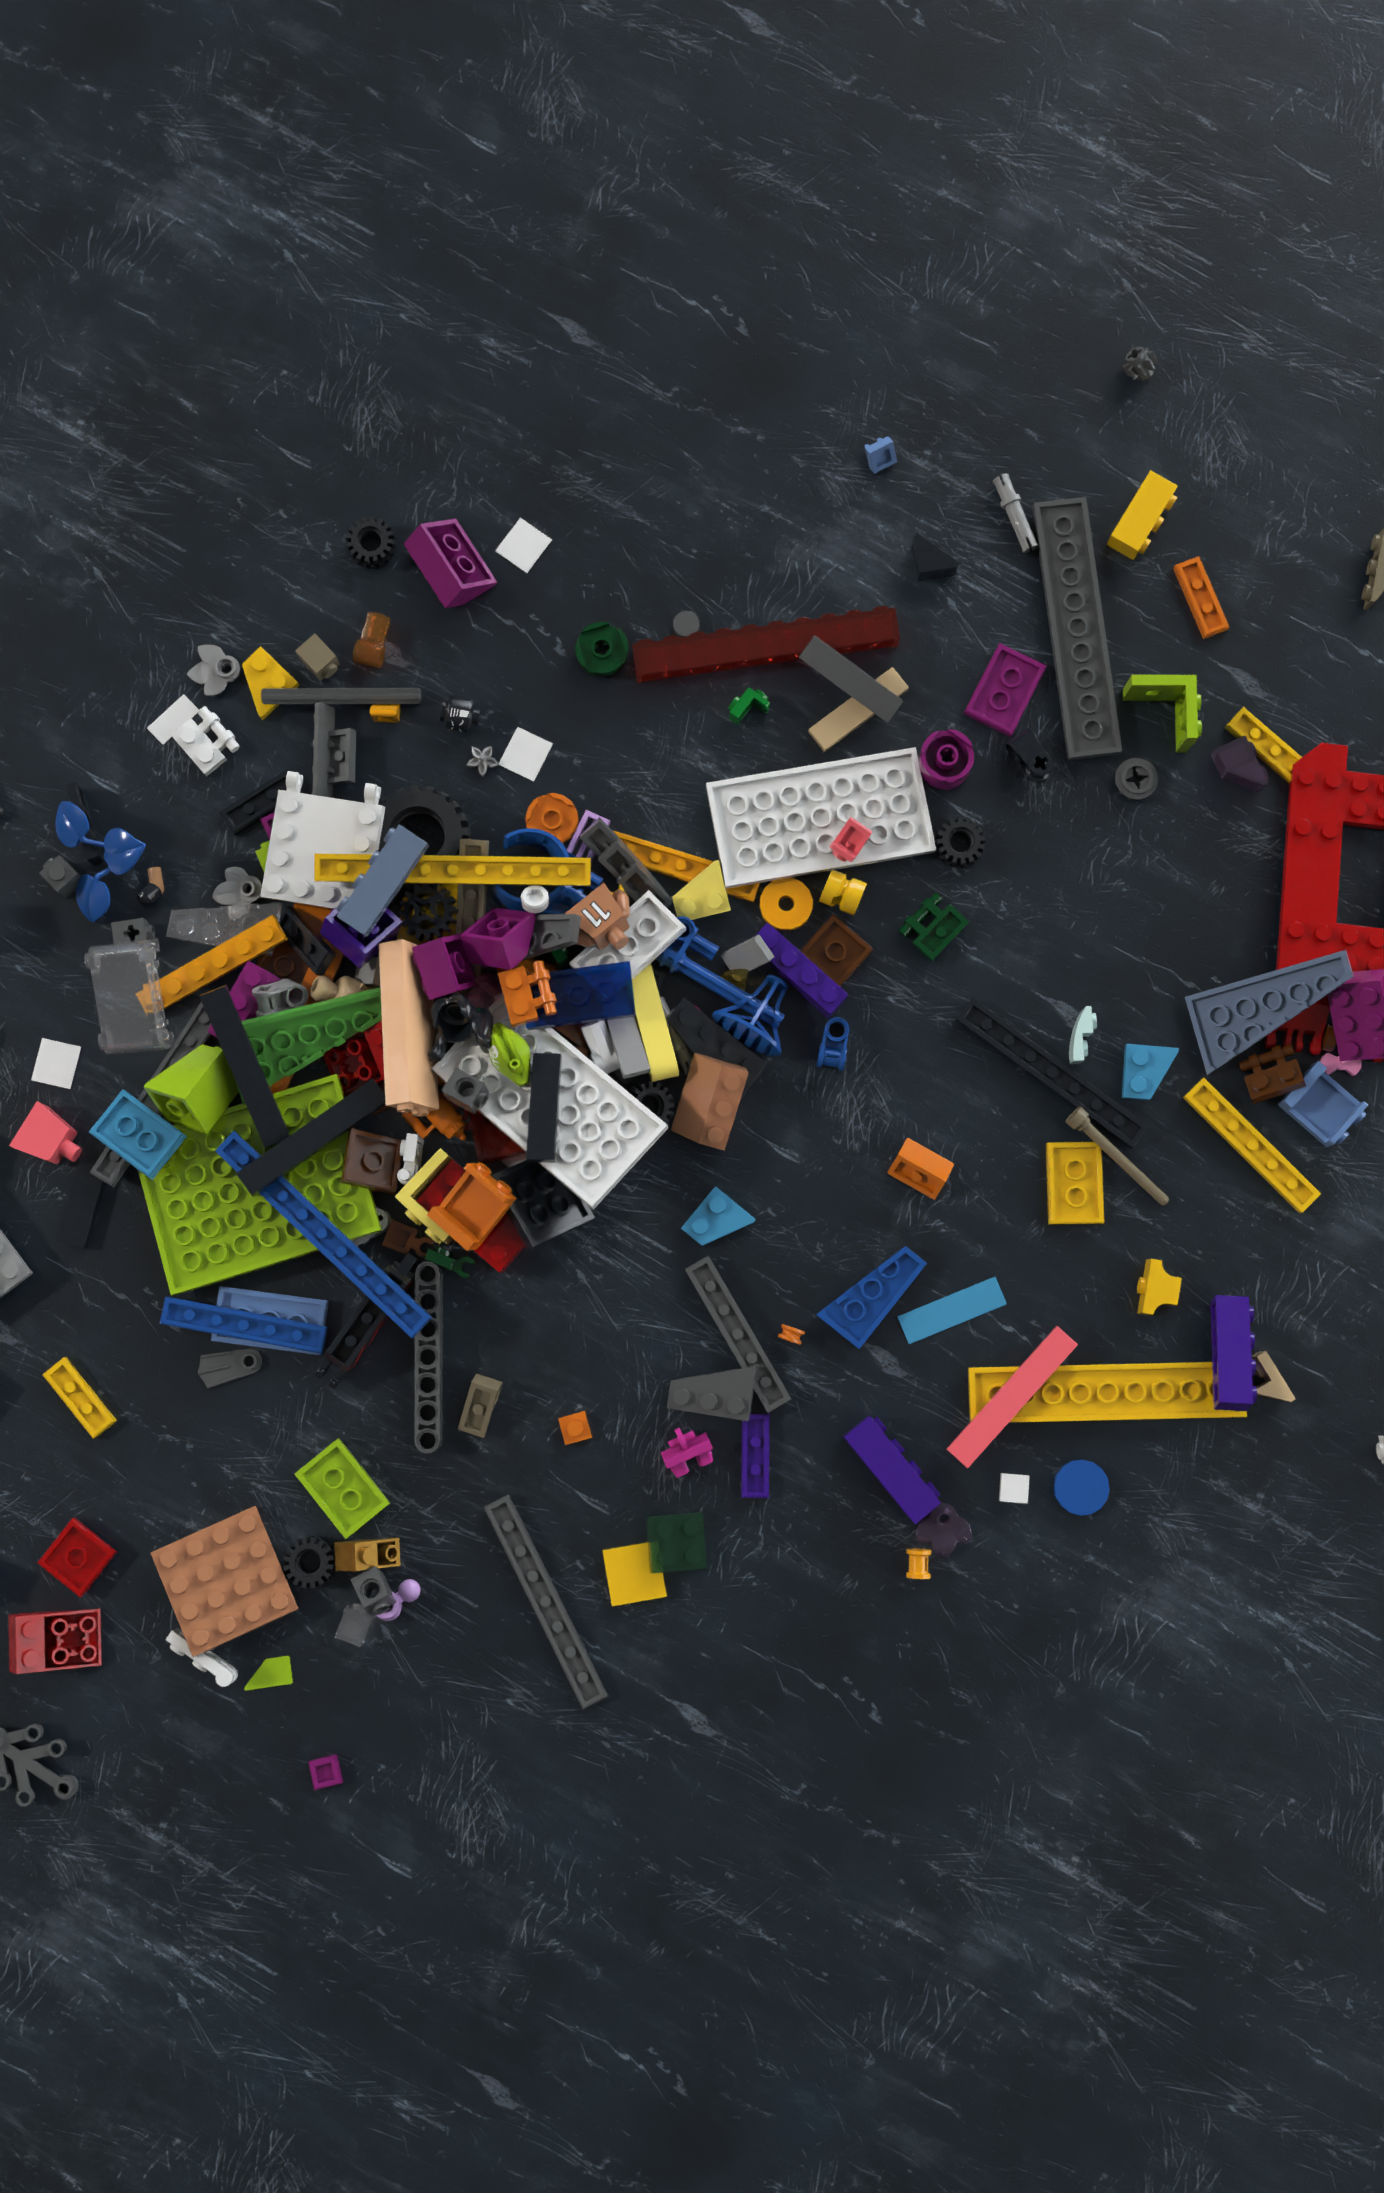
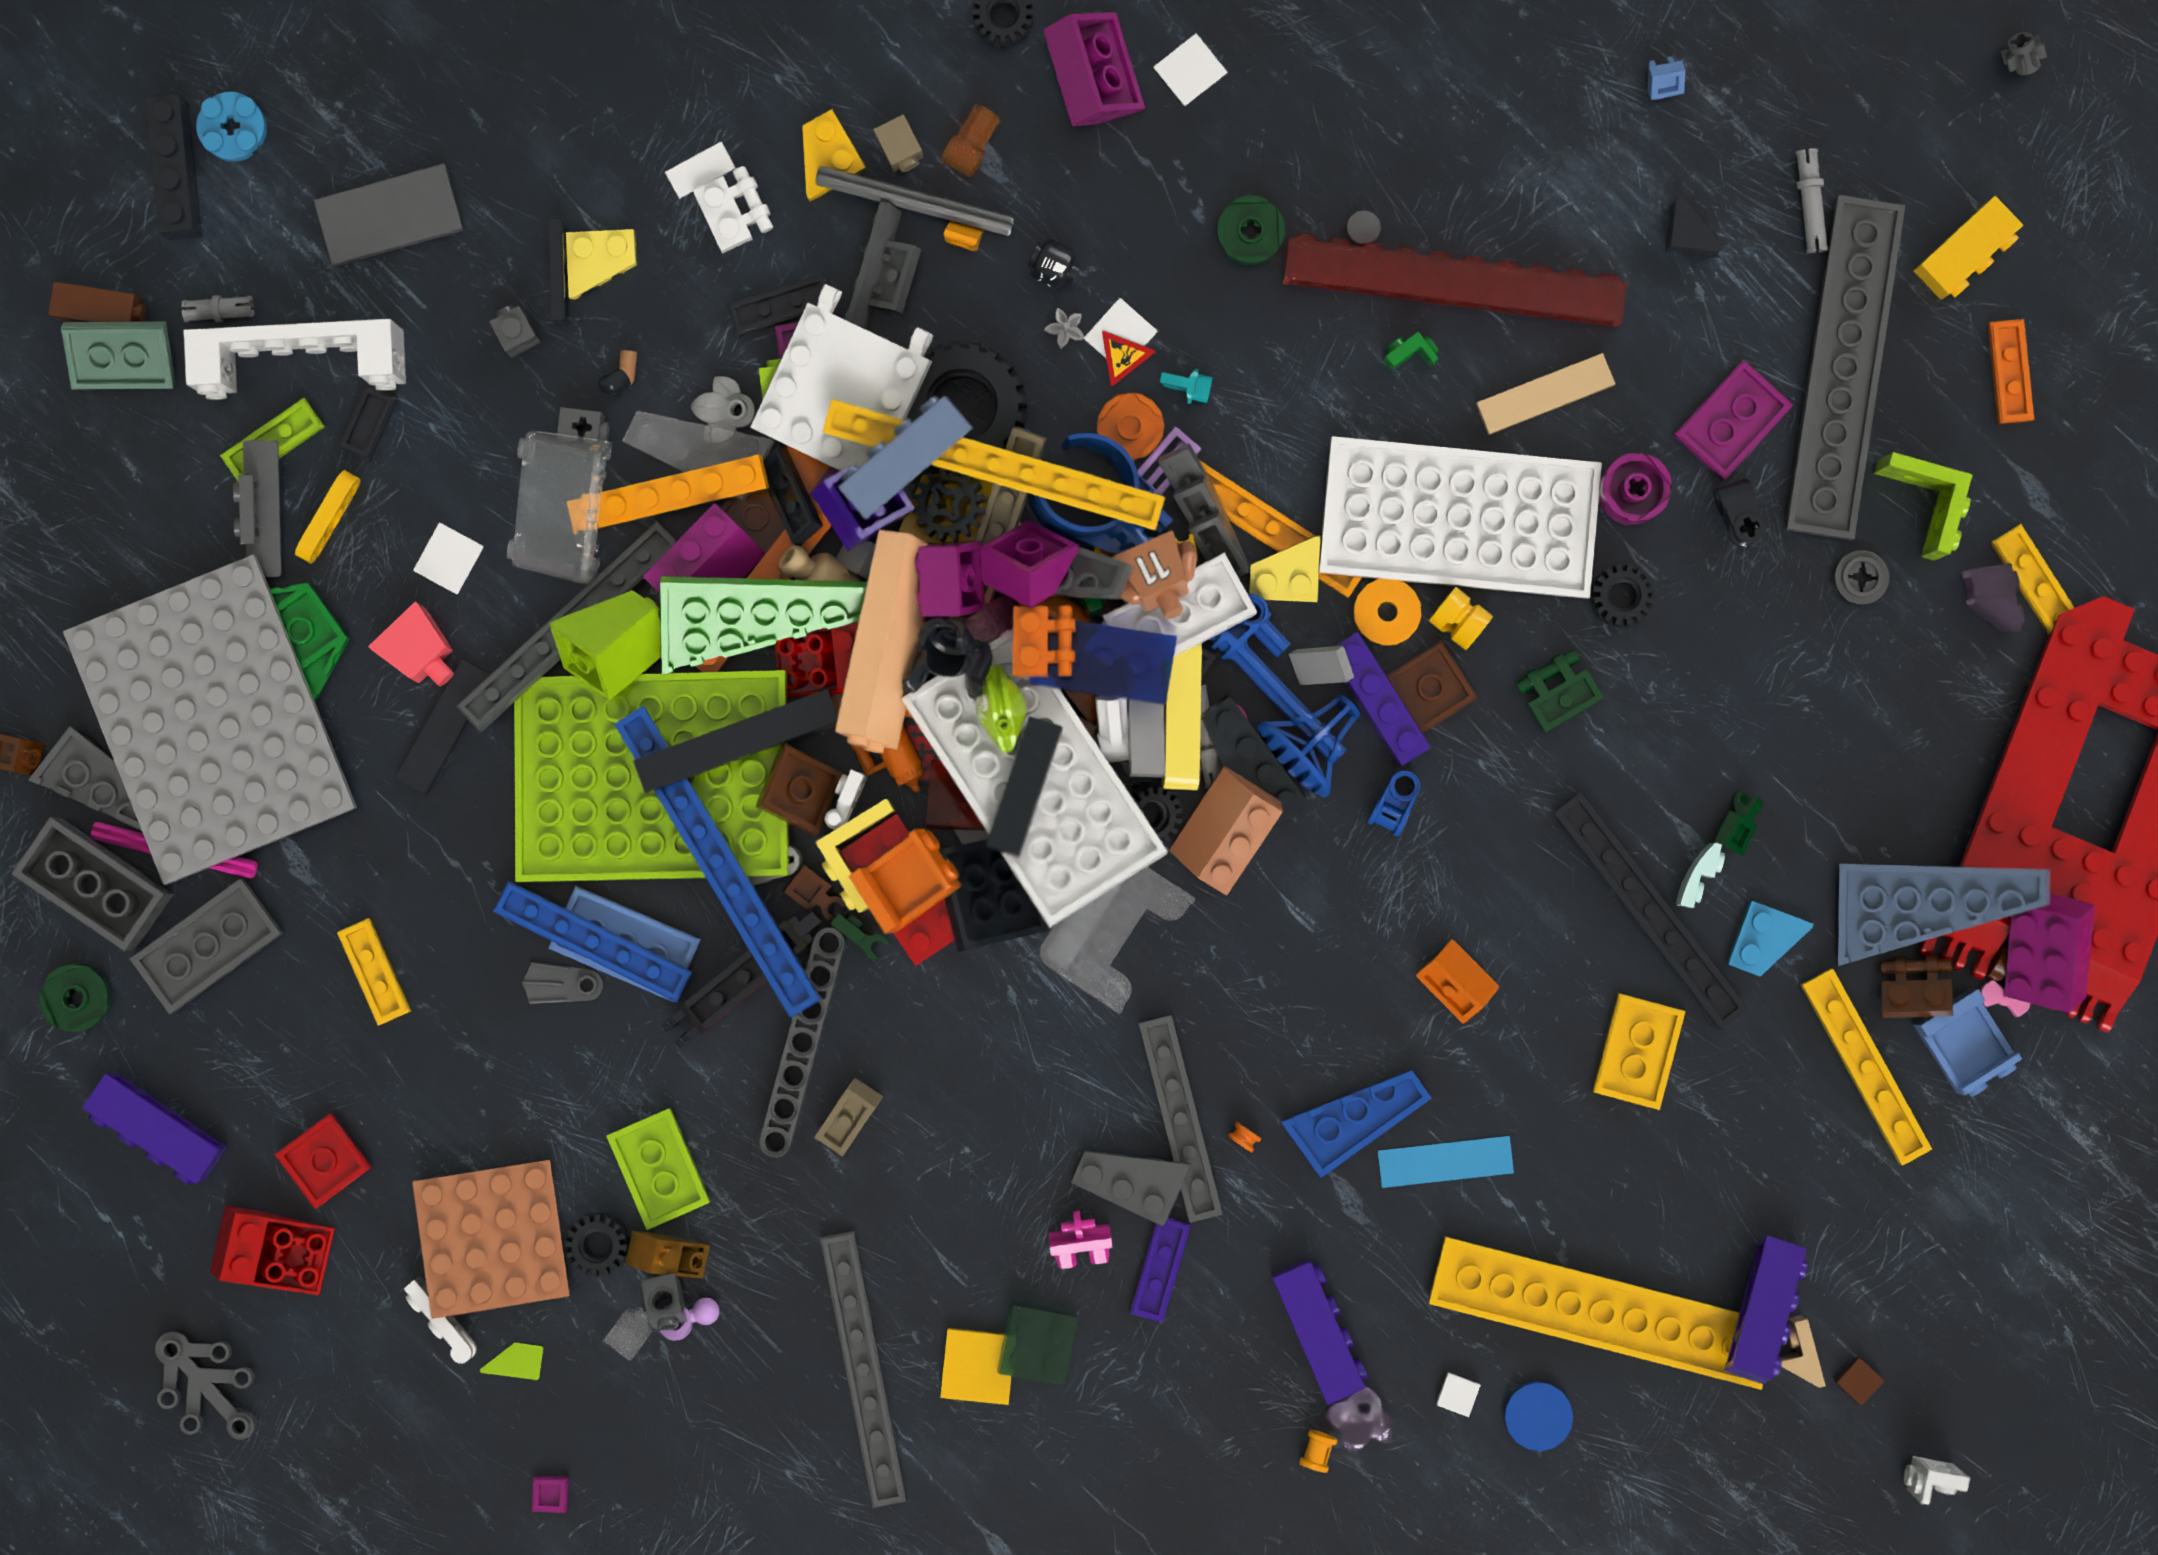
camera: 15 degrees right, 5 degrees up
(112, 805) = (597, 257): none -> light yellow wing
(120, 854) = (595, 325): blue plant -> none
(137, 1134) = (526, 677): dark azure tile -> none
(210, 670) = (762, 122): light grey plate -> none
(245, 1066) = (678, 633): black tile -> none
(275, 996) = (737, 558): light grey piece -> none
(458, 1083) = (932, 726): dark grey brick -> none
(531, 769) = (1123, 356): none -> sticker
(535, 899) = (1083, 528): white tile -> none
(575, 1427) = (954, 1174): orange plate -> none
(592, 775) = (1196, 386): none -> teal piece
(630, 1207) = (1091, 937): none -> clear windscreen
(716, 1218) = (1193, 972): dark azure wing -> none
(736, 977) = (1300, 687): clear yellow tile -> none
(850, 840) = (1487, 559): coral bracket -> none
(851, 678) = (1546, 356): dark grey slope -> none
(1012, 1396) = (1487, 1286): coral tile -> none
(1079, 1120) = (1667, 980): dark tan piece -> none
(1099, 991) = (1738, 826): none -> dark green plate
(1157, 1288) = (1699, 1206): yellow brick -> none
(1320, 1389) = (1859, 1381): none -> reddish brown tile

